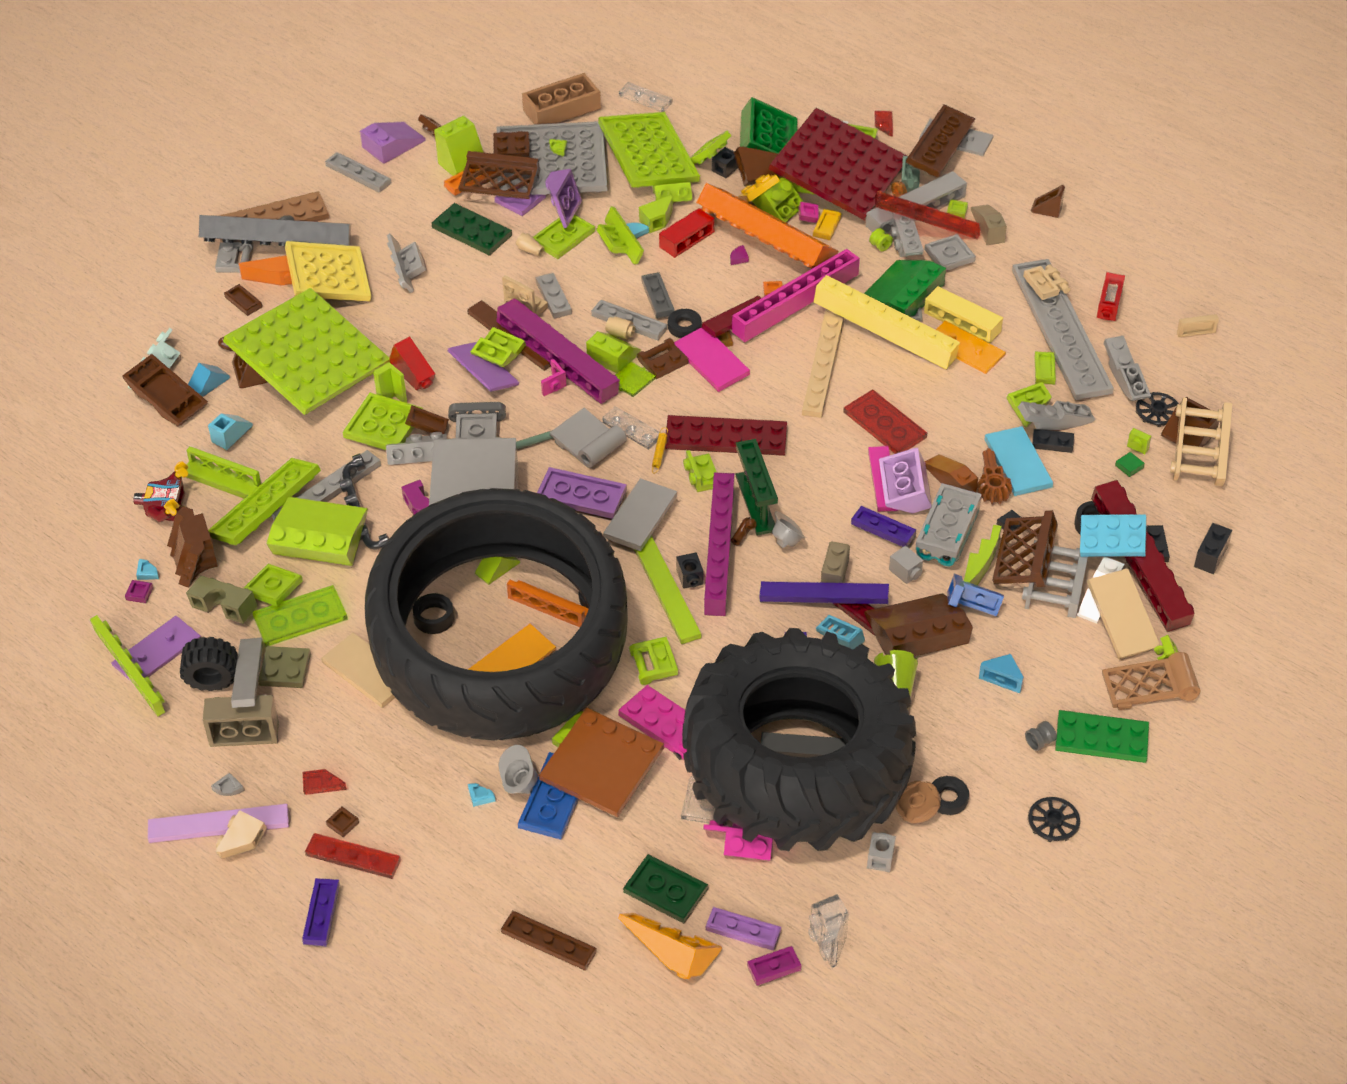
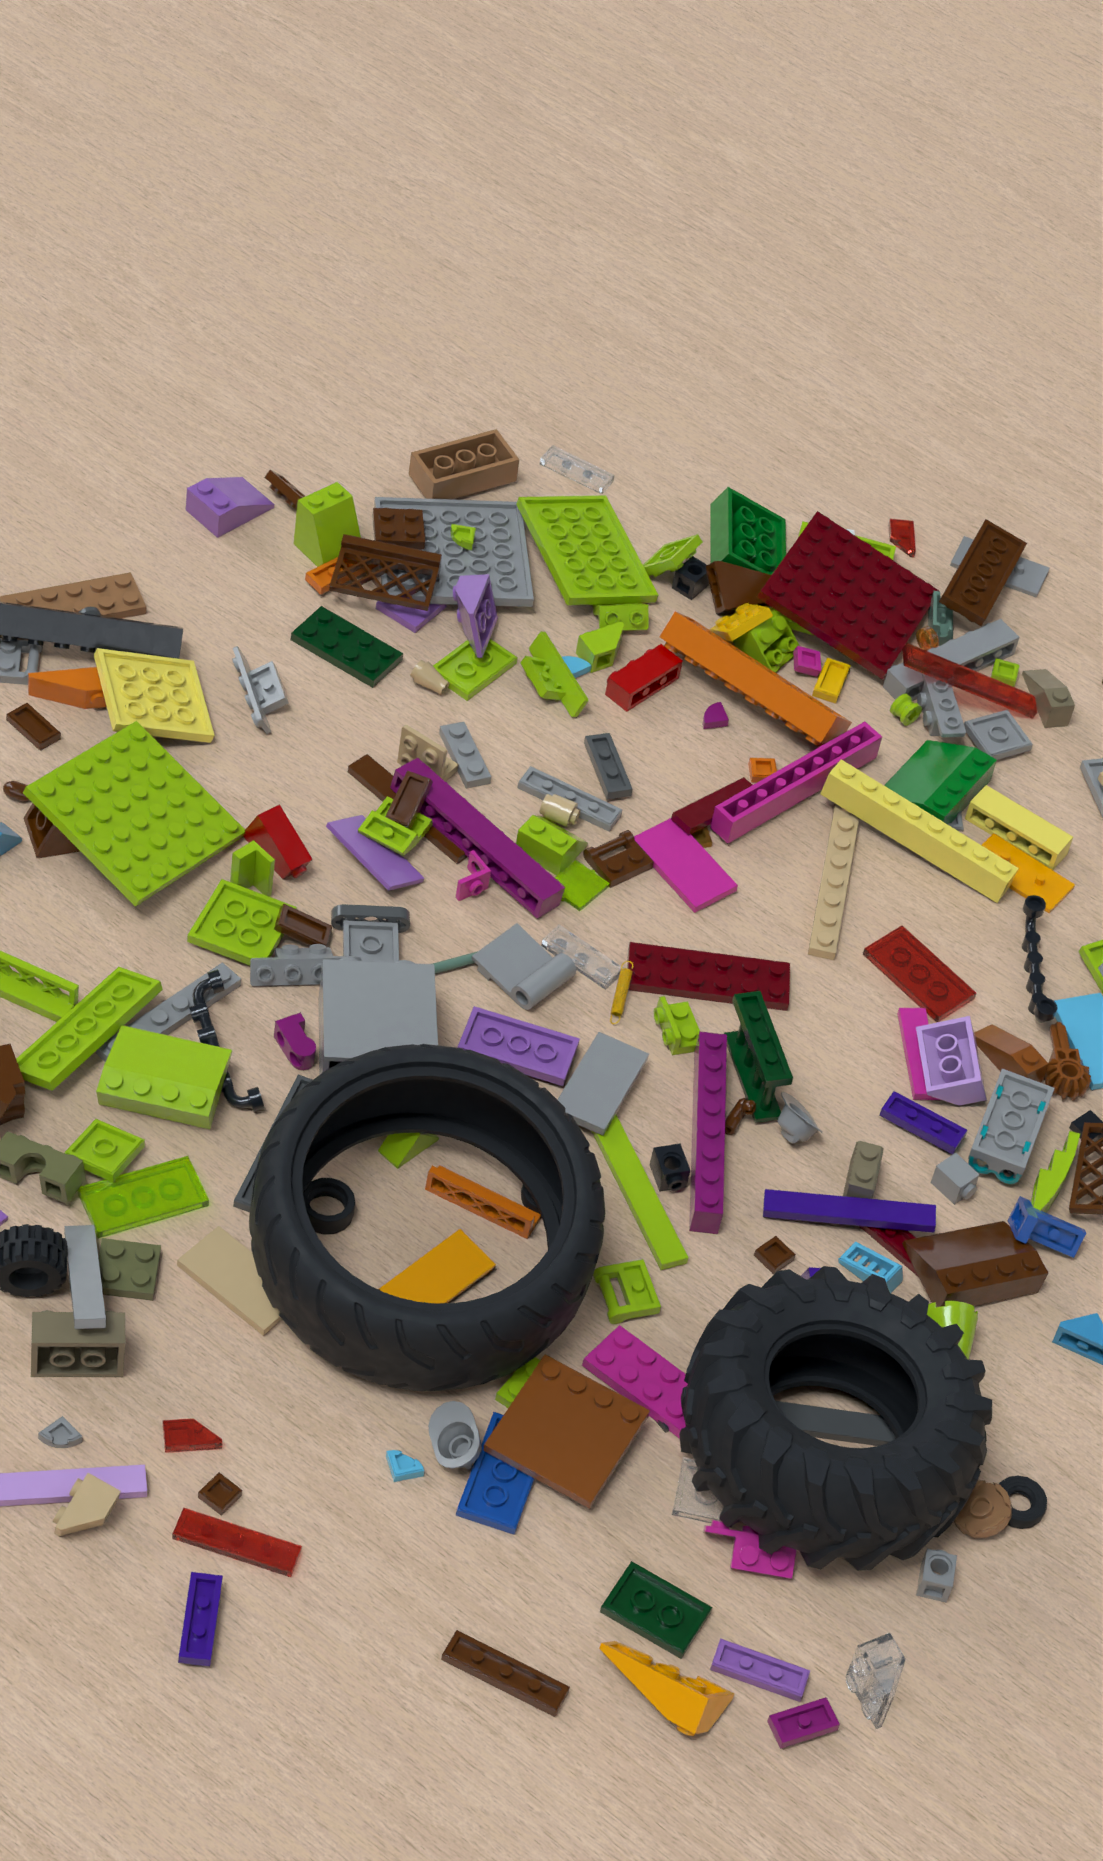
camera: 10 degrees left, 0 degrees up
(228, 429) = (28, 919): medium azure slope -> none
(358, 172) = (183, 548): light grey tile -> none
(507, 327) = (409, 799): none -> reddish brown tile
(680, 315) = (645, 797): black tyre -> none
(767, 625) = (774, 1255): none -> reddish brown tile
(975, 438) = (1039, 1005): none -> black bar

